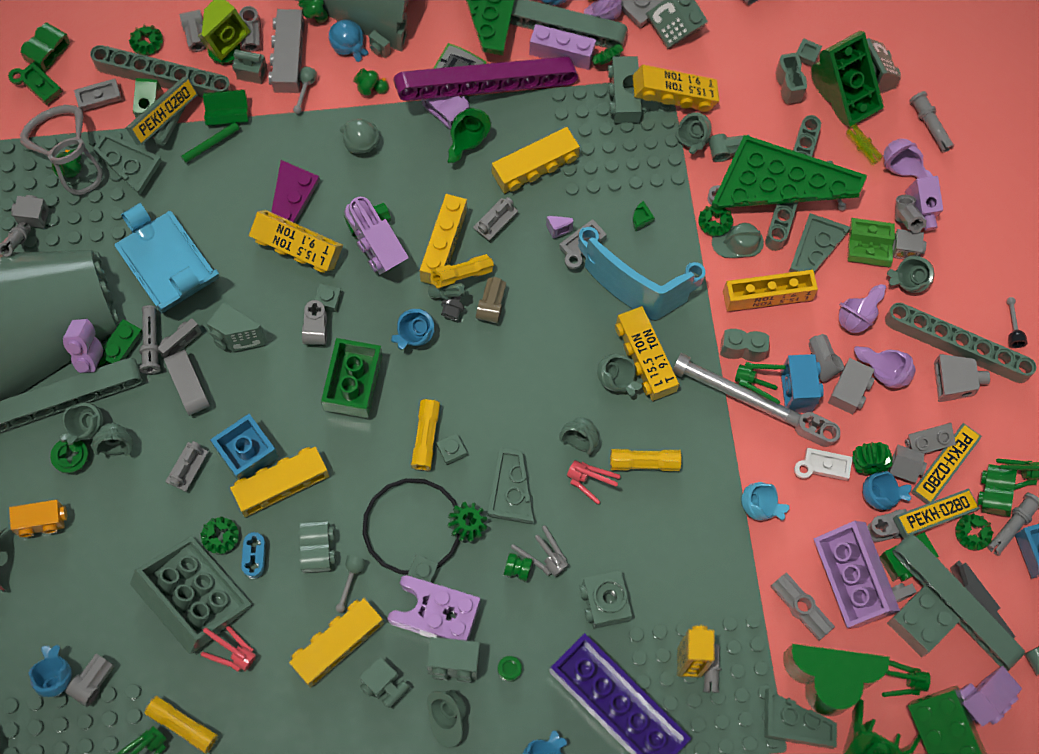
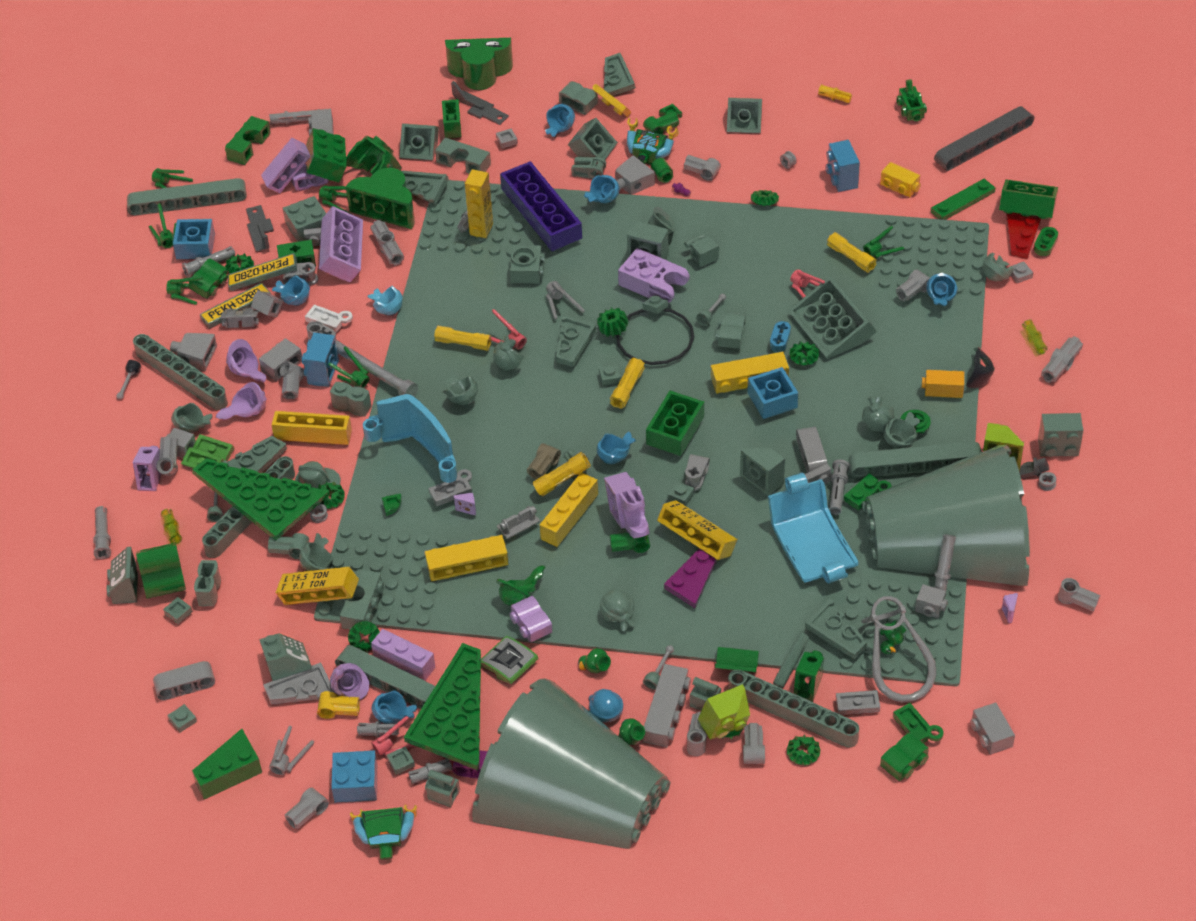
camera: 160 degrees left, 20 degrees down
(83, 345) = (892, 470): lavender brick -> none
(161, 111) = (796, 652): tile -> none
(187, 466) = (822, 397): light grey hinge -> none
(210, 142) = (757, 635): green bar -> none
(336, 642) = (729, 274): yellow brick -> none
(379, 44) = (576, 691): sand green plate -> none
(485, 78) = (488, 622): magenta beam -> none
(509, 668) = (609, 245): green tile -> none
(517, 566) = (583, 292): green wheel -> none
(646, 353) = (432, 394): yellow brick -> none
(872, 458) = (291, 308): green gear -> none
(905, 159) = (148, 502): lavender piece -> none
(952, 593) = (278, 219): sand green beam -> none

